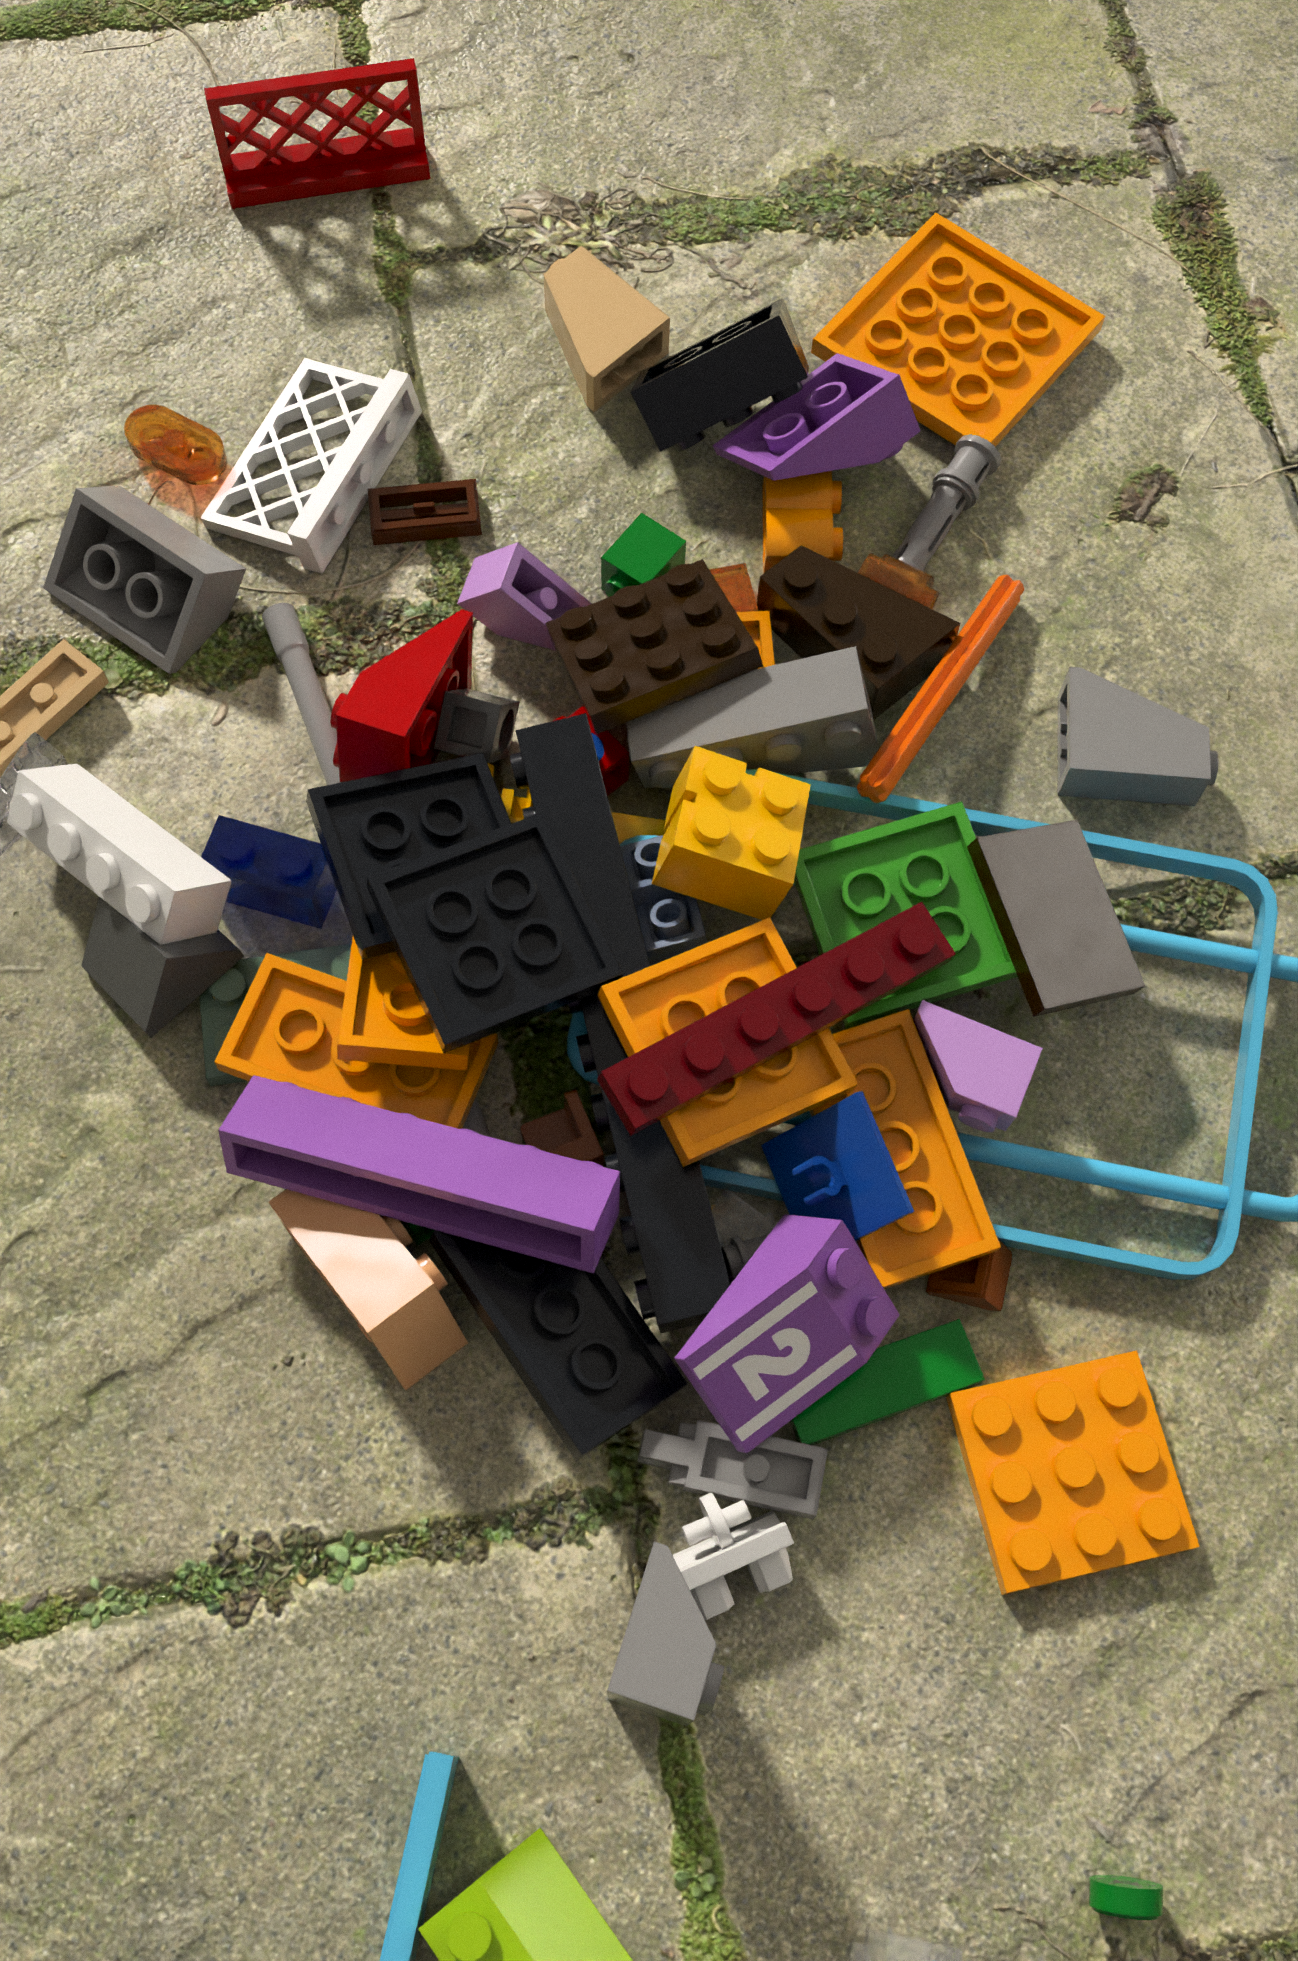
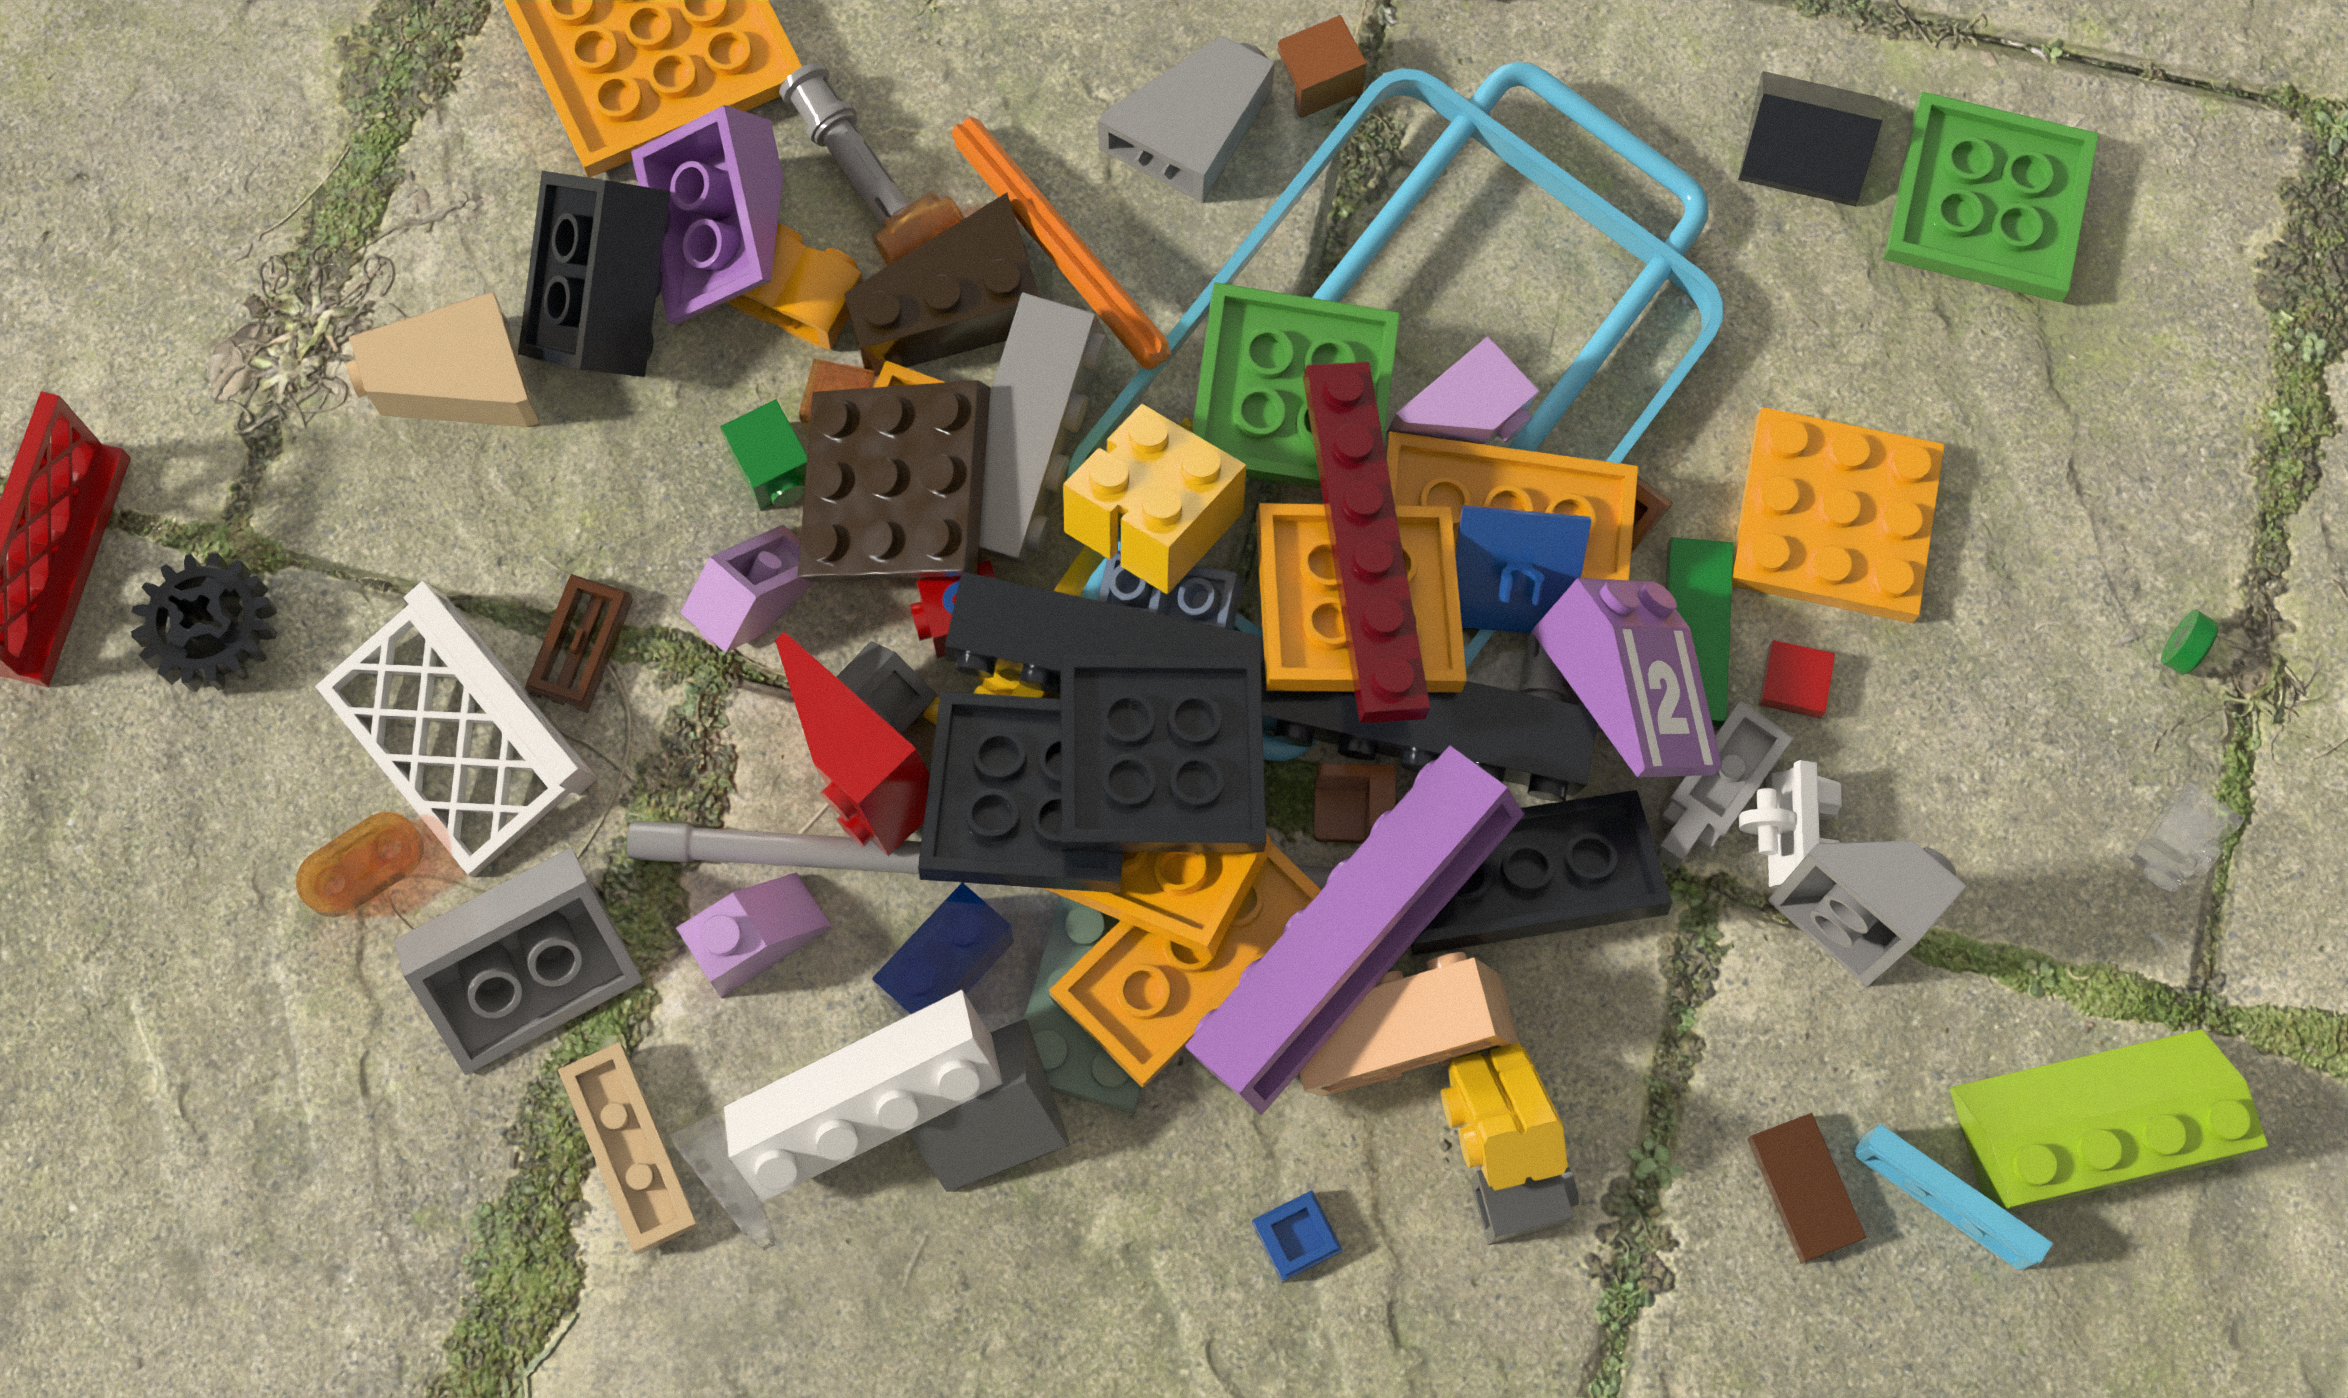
camera: 65 degrees left, 5 degrees up
(150, 1263) = (1297, 1236): none -> blue tile
(234, 723) = (752, 930): none -> lavender slope
(254, 1444) = (1524, 1207): none -> dark grey brick
(311, 1387) = (1504, 1117): none -> yellow brick
(317, 267) = (196, 648): none -> black gear
(375, 1717) = (1806, 1188): none -> reddish brown tile
(882, 1499) = (1796, 679): none -> red tile
(1055, 917) = (1362, 262): tile -> none
(1236, 822) = (1323, 65): none -> dark orange panel

